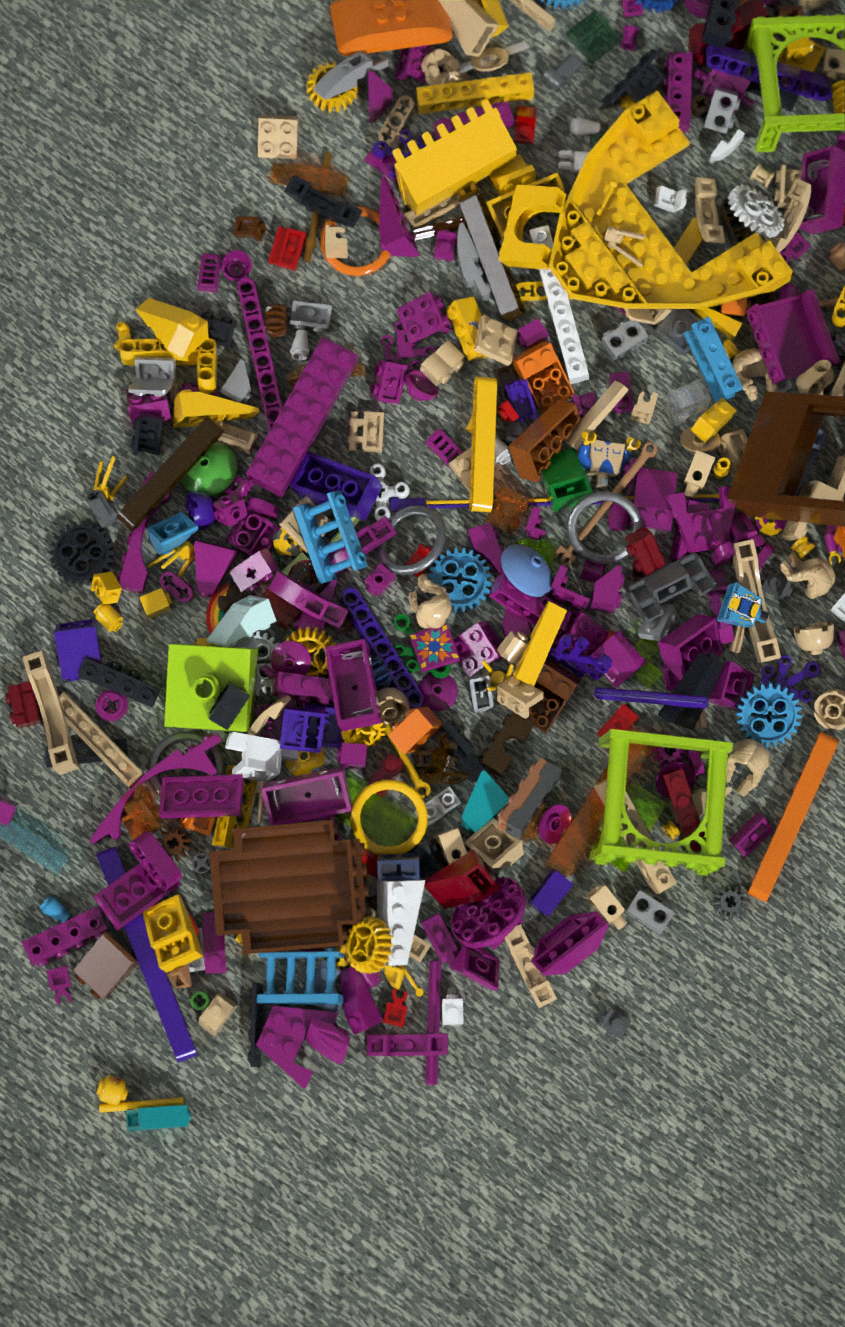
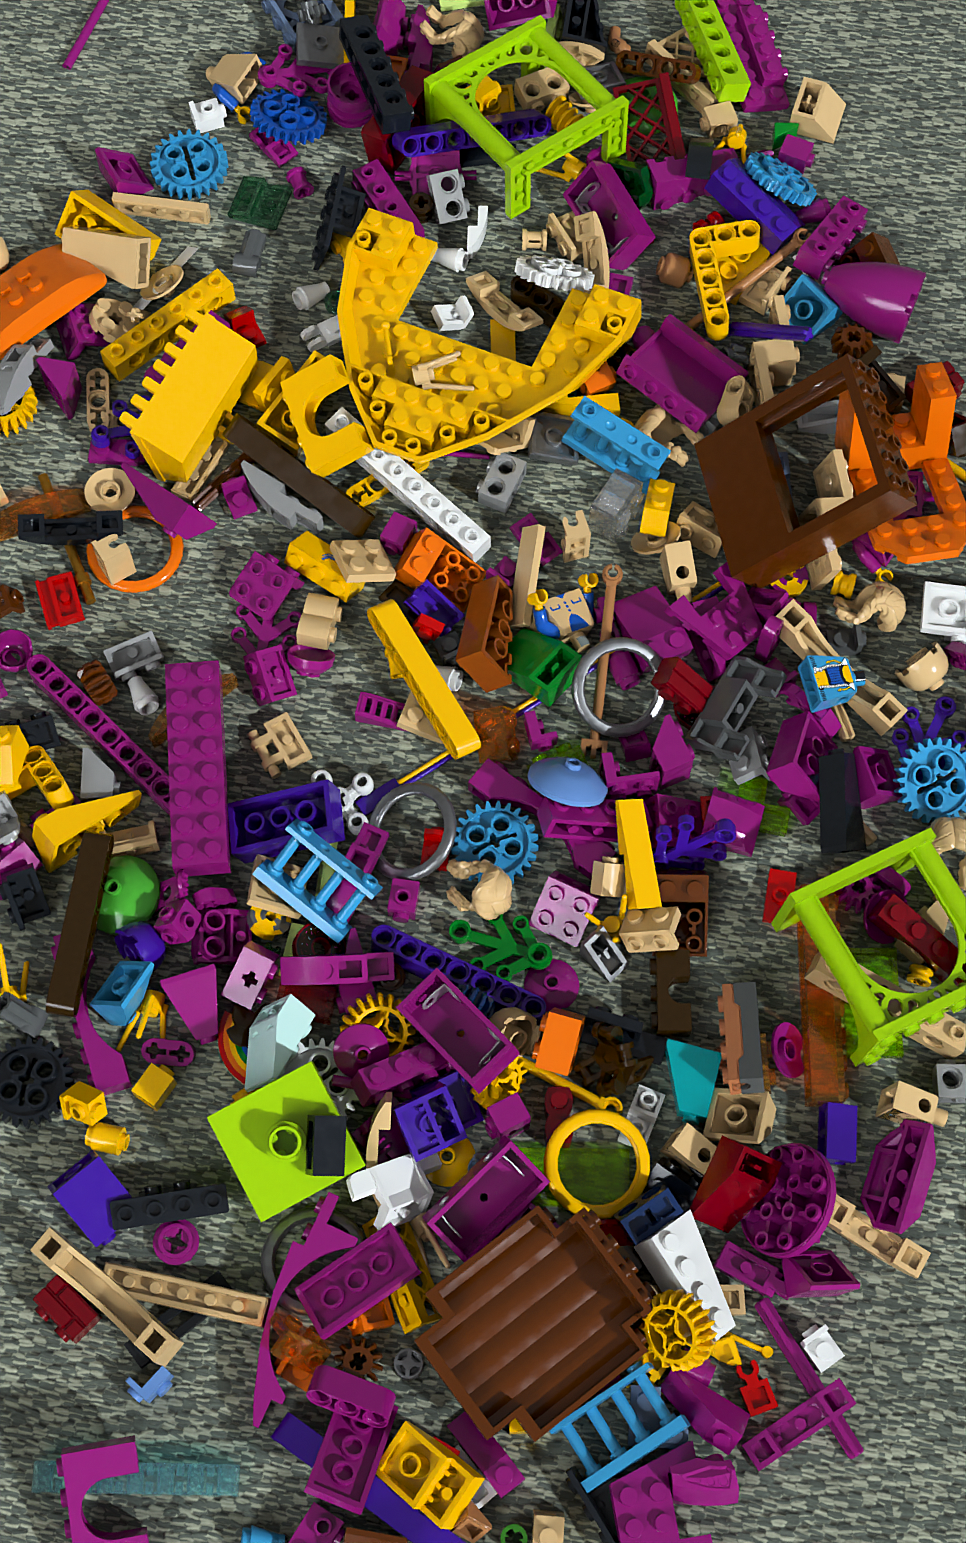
camera: 30 degrees left, 10 degrees down
(50, 782) = (158, 1385): none -> medium blue bracket
(363, 182) = (108, 481): none -> tan dish
(434, 648) = (517, 936): tile -> none
(651, 697) = (801, 838): dark purple axle -> none
(697, 156) = (452, 258): none -> white cone
(721, 468) = (702, 551): yellow pin -> none
(825, 138) = (572, 166): none -> yellow plant

